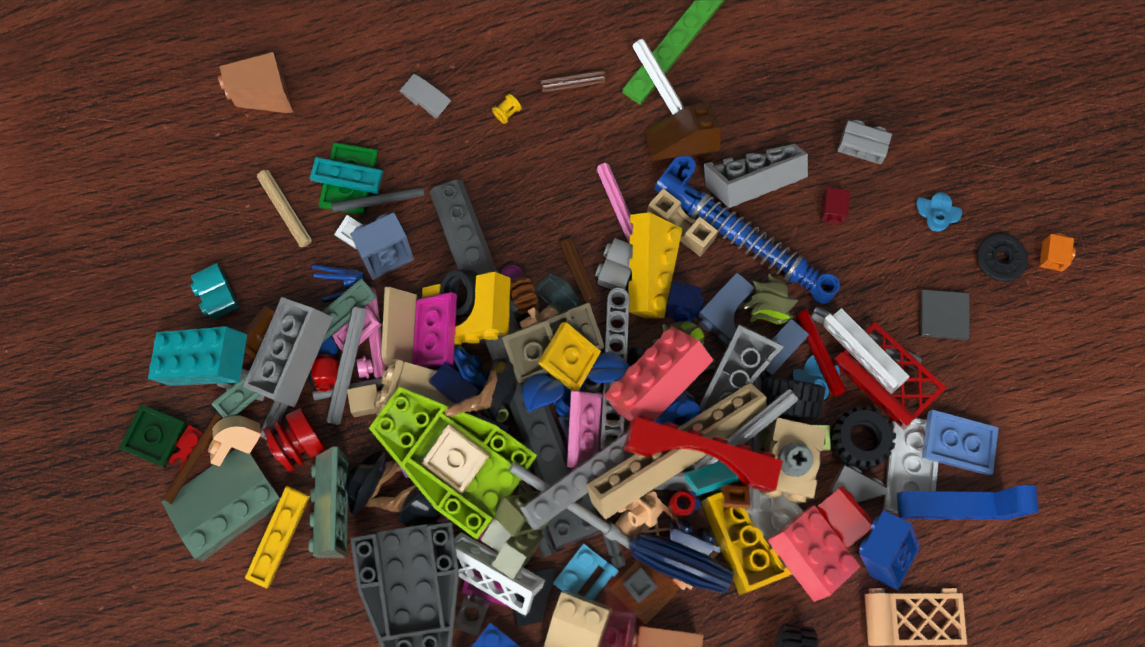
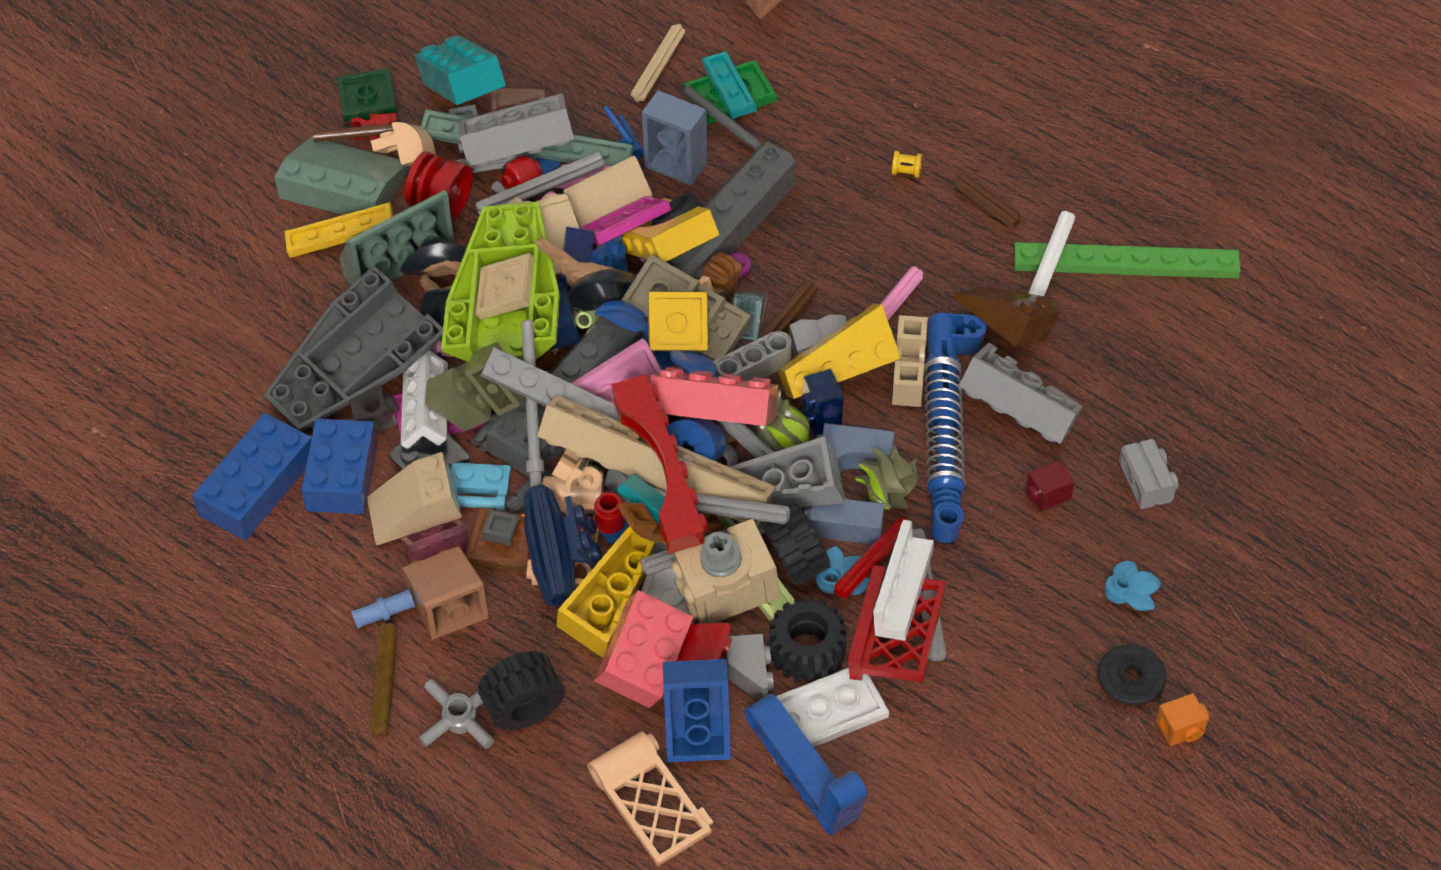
camera: 60 degrees right, 20 degrees down
(214, 292) = (534, 59): teal brick -> none
(425, 95) = (863, 99): light grey slope -> none
(944, 315) = (1016, 654): dark grey tile -> none
(960, 442) = (877, 734): medium blue plate -> none

